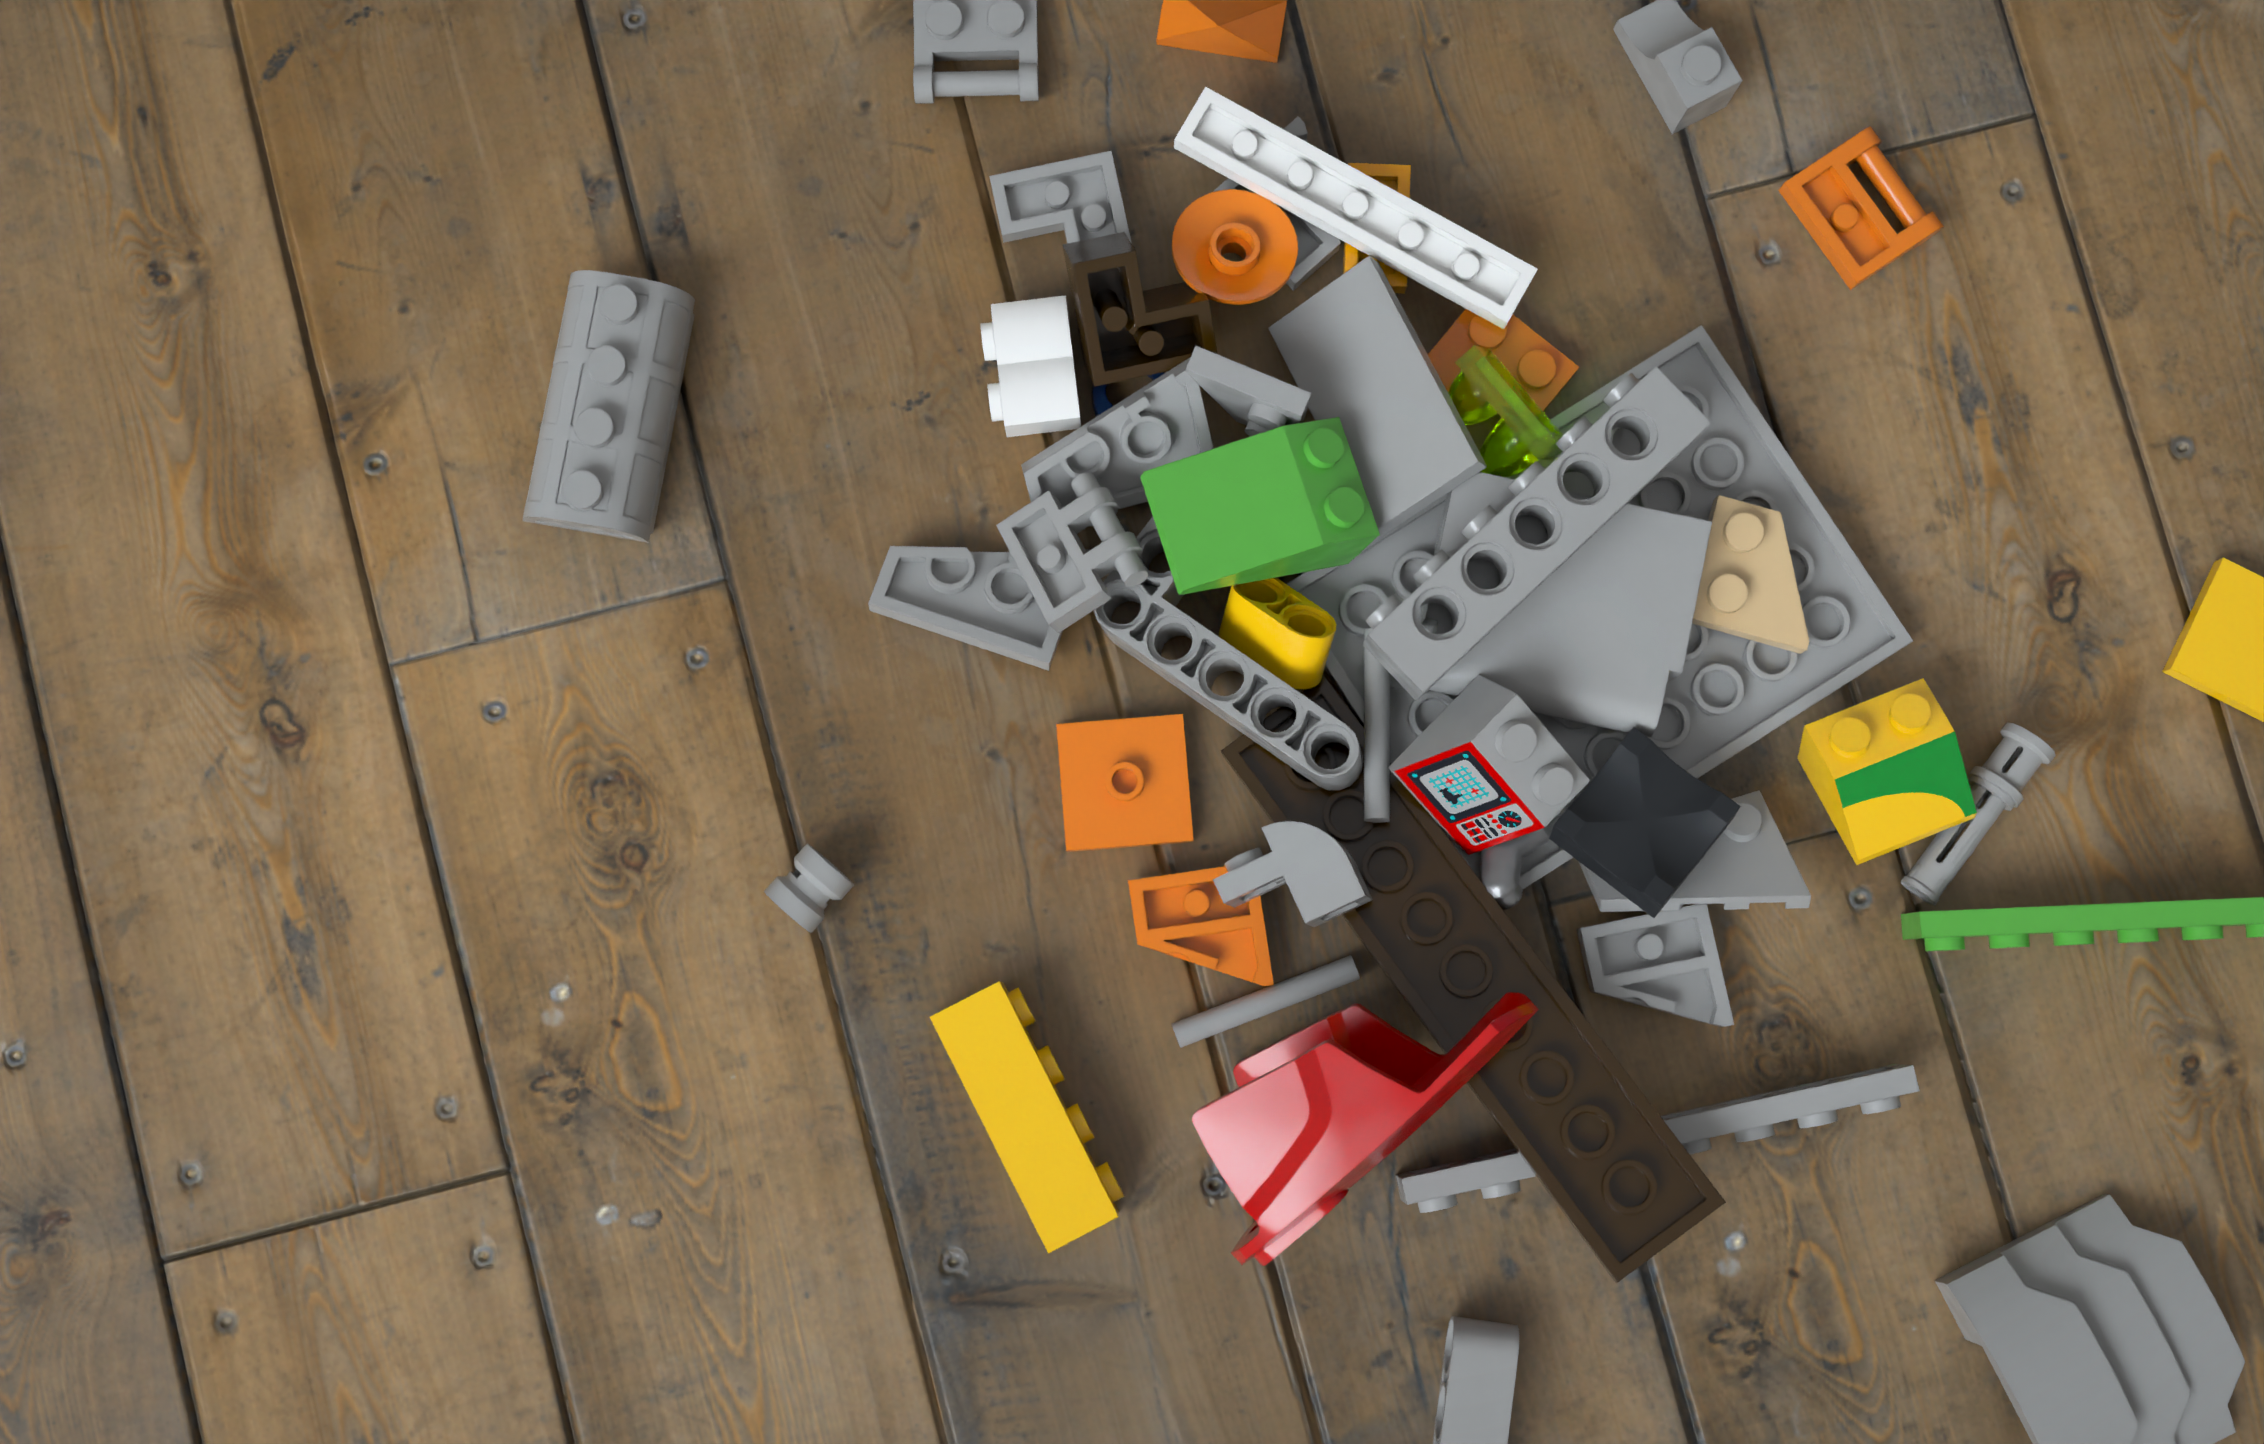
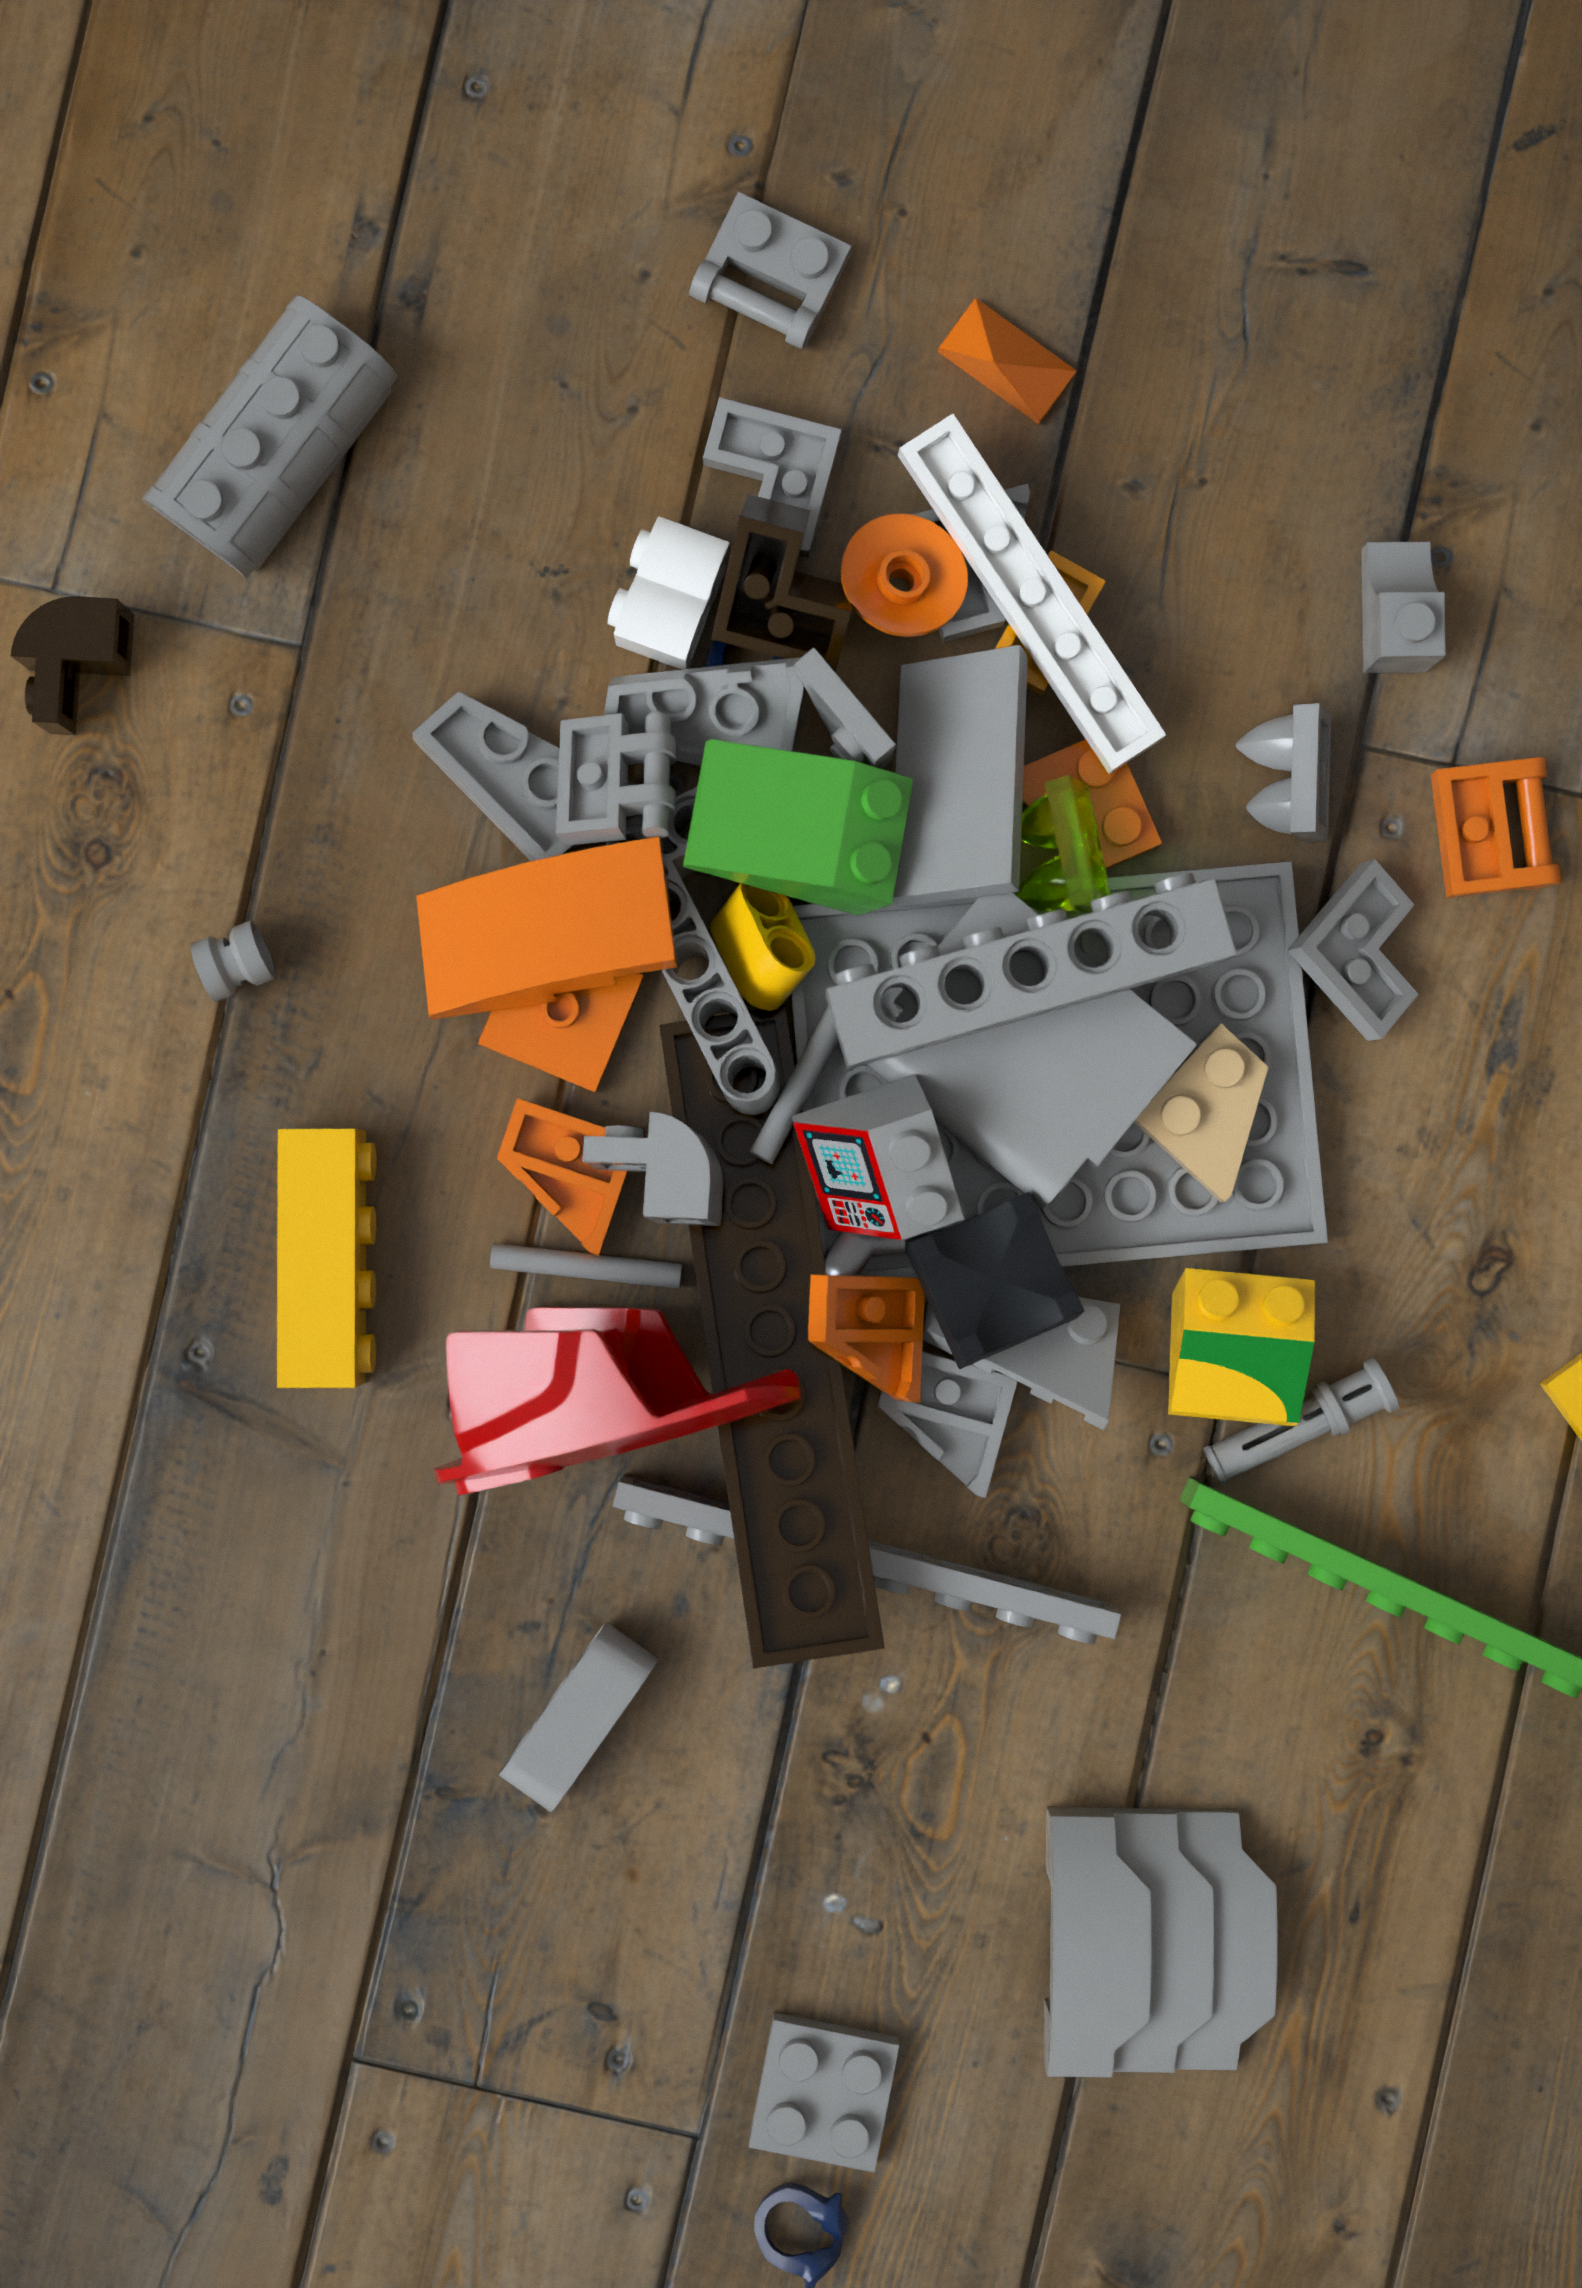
camera: 25 degrees right, 5 degrees up
(517, 675) = (66, 640): none -> dark brown brick
(1079, 715) = (546, 928): none -> orange slope
(1558, 922) = (871, 1328): none -> orange wing
(1655, 222) = (1296, 745): none -> light grey tile
(1791, 382) = (1344, 954): none -> light grey plate

